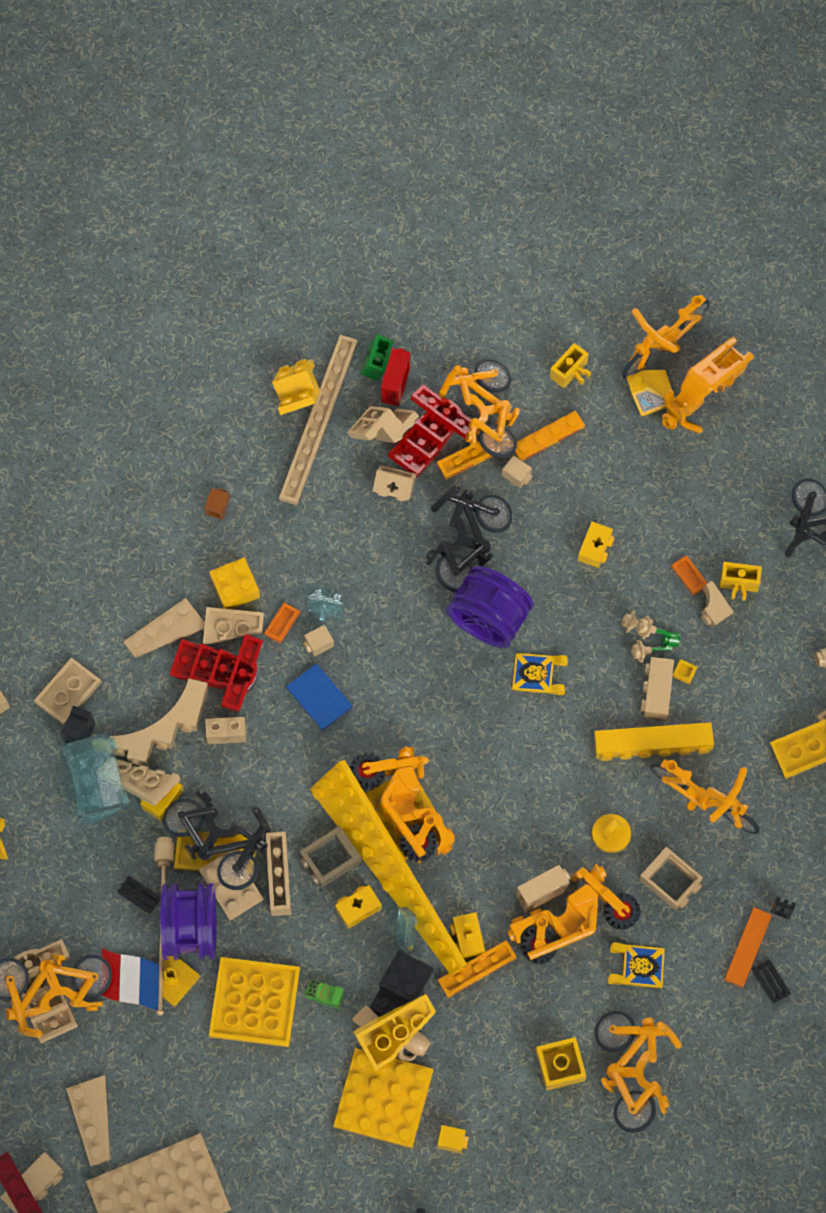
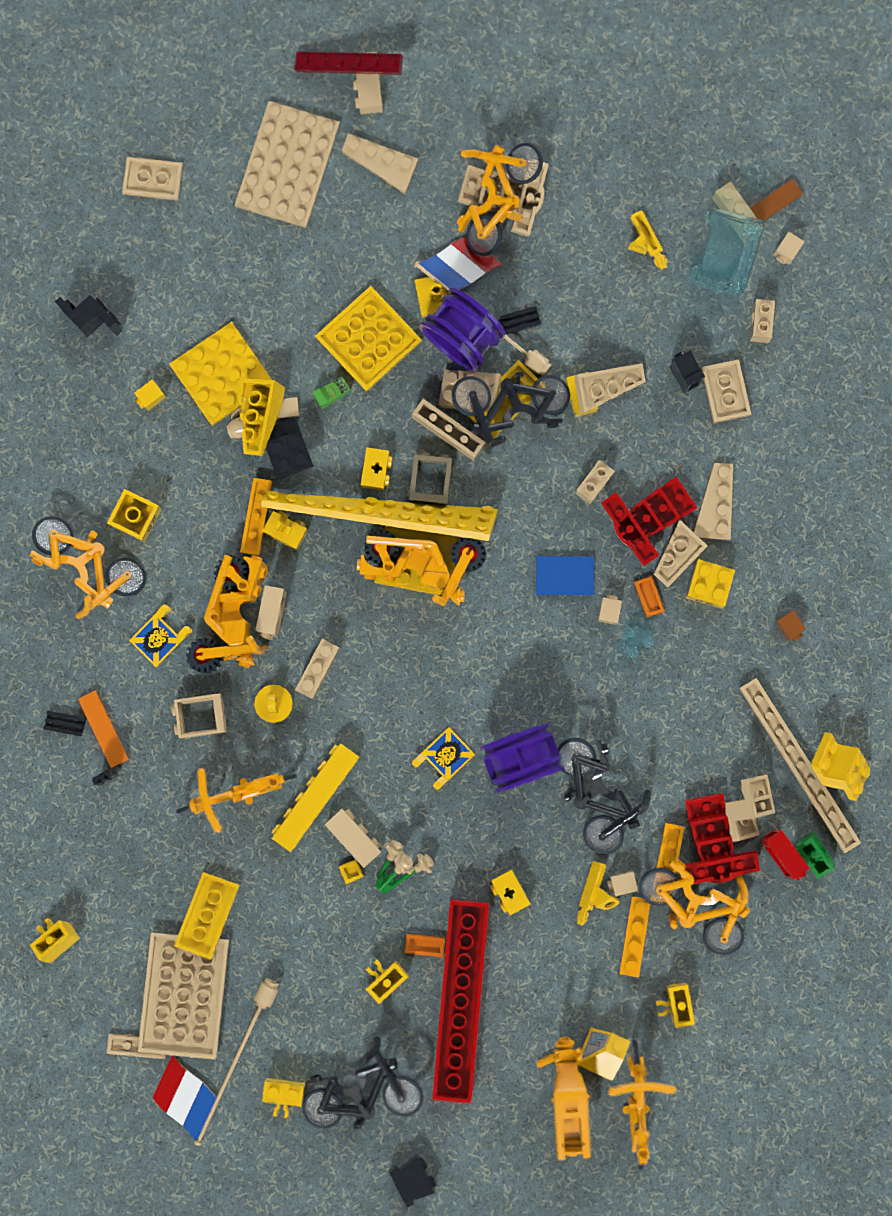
camera: 130 degrees right, 15 degrees up
(95, 778) = (632, 352): clear light blue windscreen -> none
(183, 715) = (634, 463): tan arch -> none
(403, 480) = (693, 777): tan brick -> none
(405, 926) = (327, 487): clear light blue hinge -> none
(543, 487) = (593, 894): none -> yellow piece
(555, 819) = (317, 669): none -> tan brick
(705, 516) = (460, 1001): none -> red brick
(716, 606) = (378, 939): tan arch -> none

